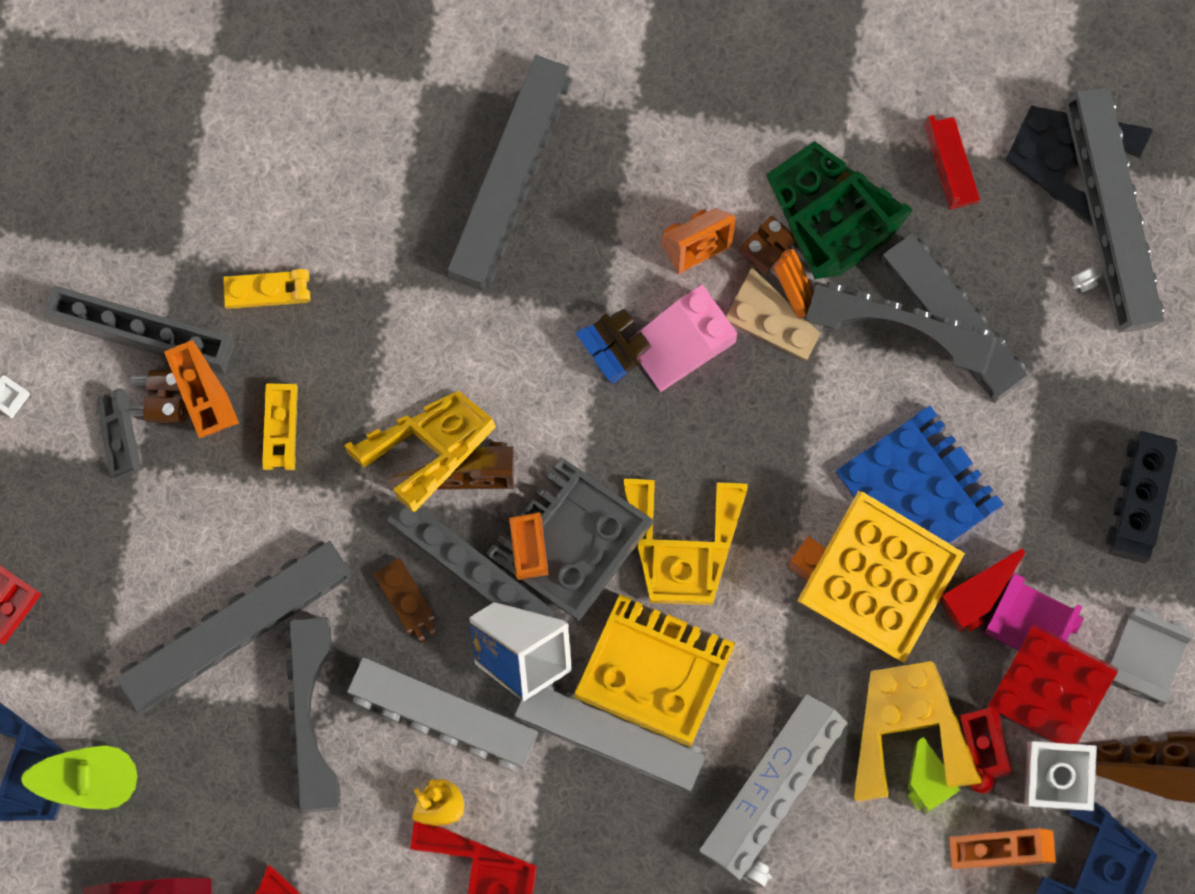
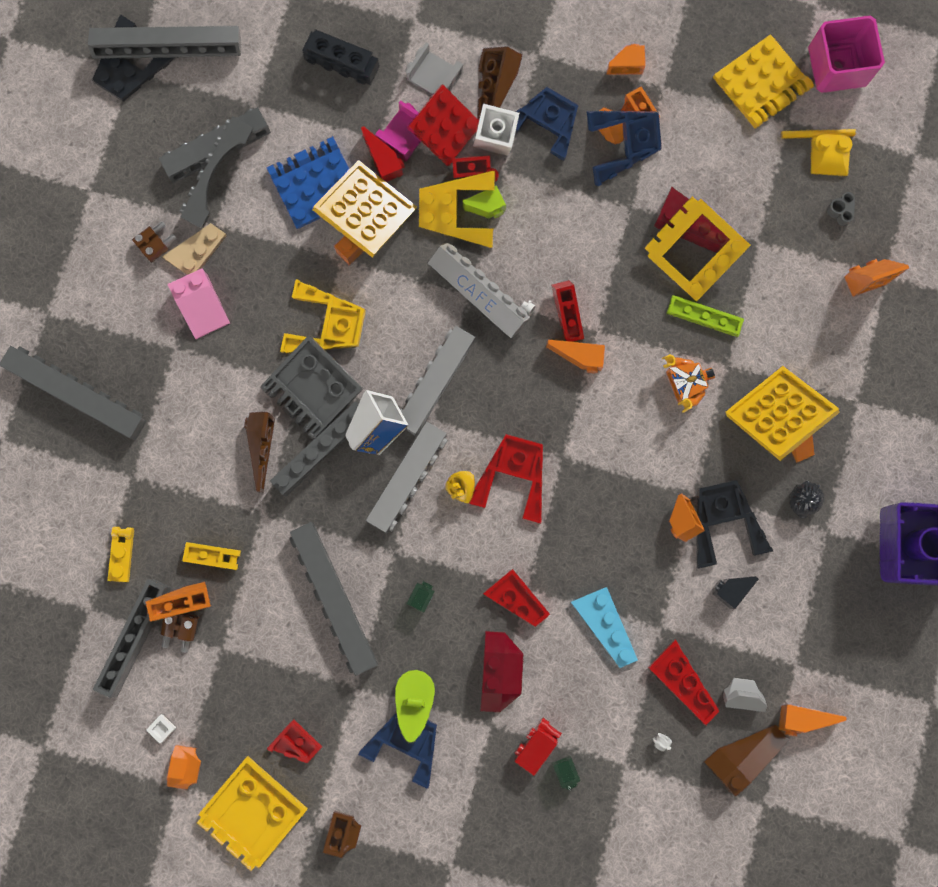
camera: 85 degrees left, 5 degrees up
(118, 434) = (198, 659): dark grey hinge -> none
(253, 765) = (421, 596): none -> clear green brick
(310, 650) = (437, 558): dark grey arch -> none
(406, 599) = (332, 491): reddish brown hinge -> none
(448, 426) = (229, 450): yellow wing -> none
(528, 546) = (312, 411): orange tile -> none
(610, 347) = (196, 346): dark brown hips -> none
(652, 673) = (402, 350): yellow hinge -> none
(699, 238) = (137, 282): orange slope -> none
(794, 282) = (176, 230): orange tile -> none
(833, 210) = (134, 202): dark green wedge -> none
(951, 162) = (118, 131): red panel -> none
(1003, 849) = (532, 170): orange slope -> none
(1085, 279) = (205, 67): white plate -> none

